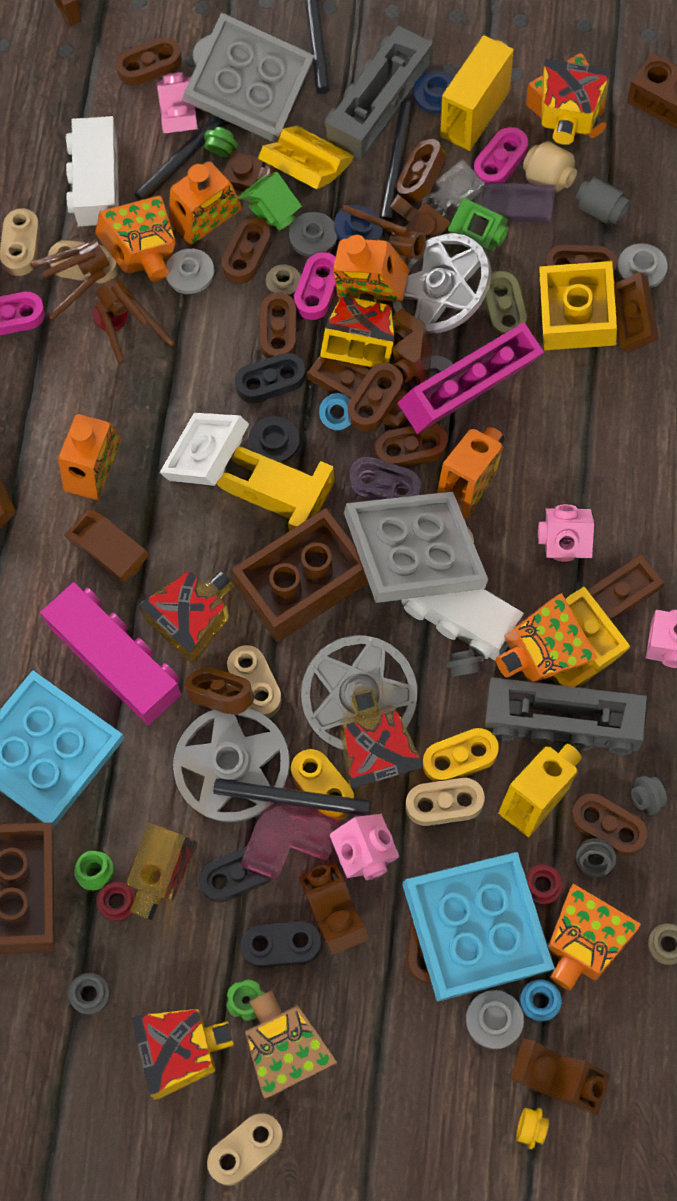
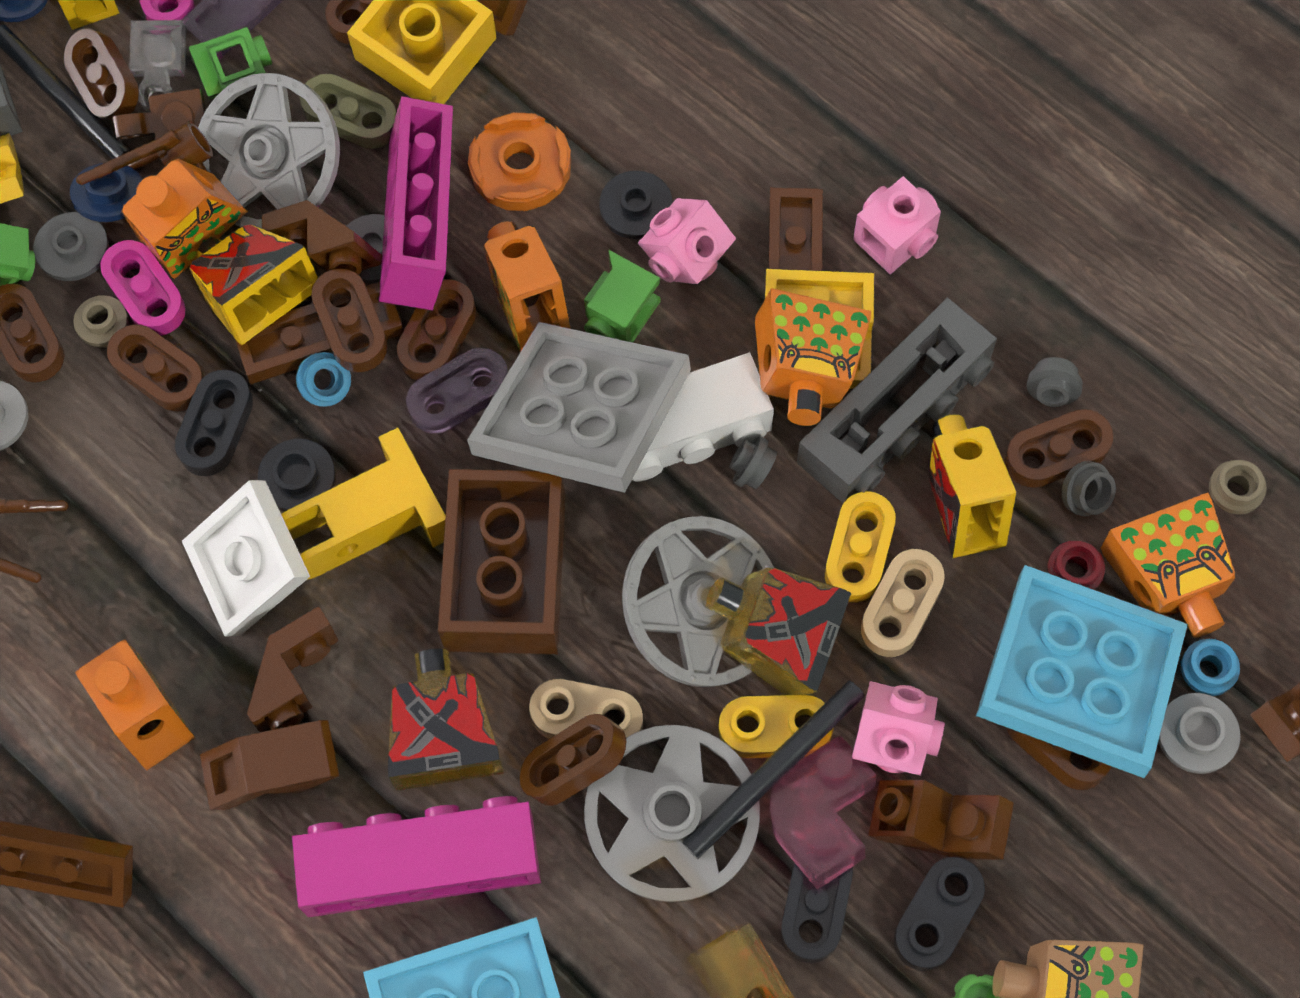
camera: 55 degrees left, 0 degrees up
(149, 518) = (276, 694): none -> reddish brown slope
(503, 526) = (621, 300): none -> bright green window
(547, 432) = (524, 187): none -> orange tile
(573, 487) = (632, 202): none -> black piece

